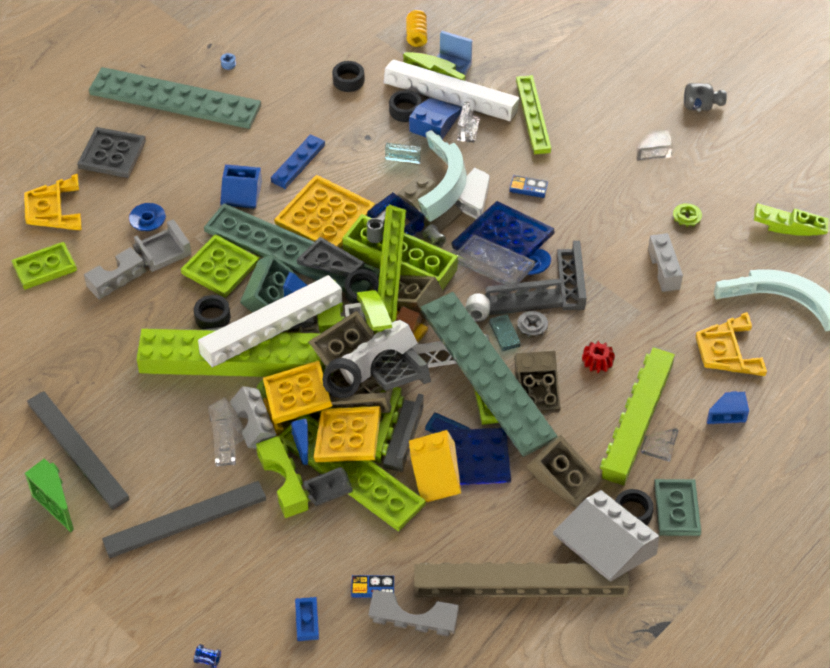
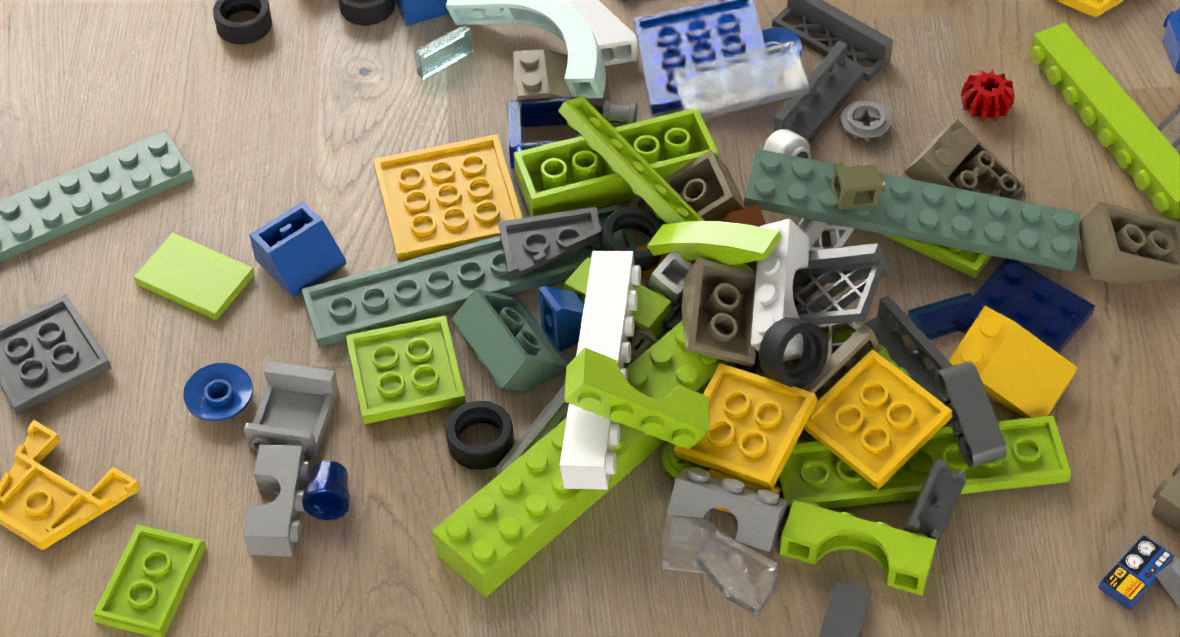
camera: 45 degrees left, 0 degrees up
(134, 285) = (327, 491): none -> clear blue piece
(198, 167) = (194, 276): none -> tile
(228, 57) = (45, 111): medium blue bush -> none
(241, 321) = (599, 387): none -> lime arch
(297, 161) = (319, 166): blue plate -> none
(300, 436) = (832, 478): blue slope -> none
(375, 228) = (566, 145): dark grey piece -> none
(383, 465) = (973, 416): none -> dark grey beam
(465, 339) = (857, 186): none -> olive brick
(504, 332) = (838, 150): clear light blue tile -> none

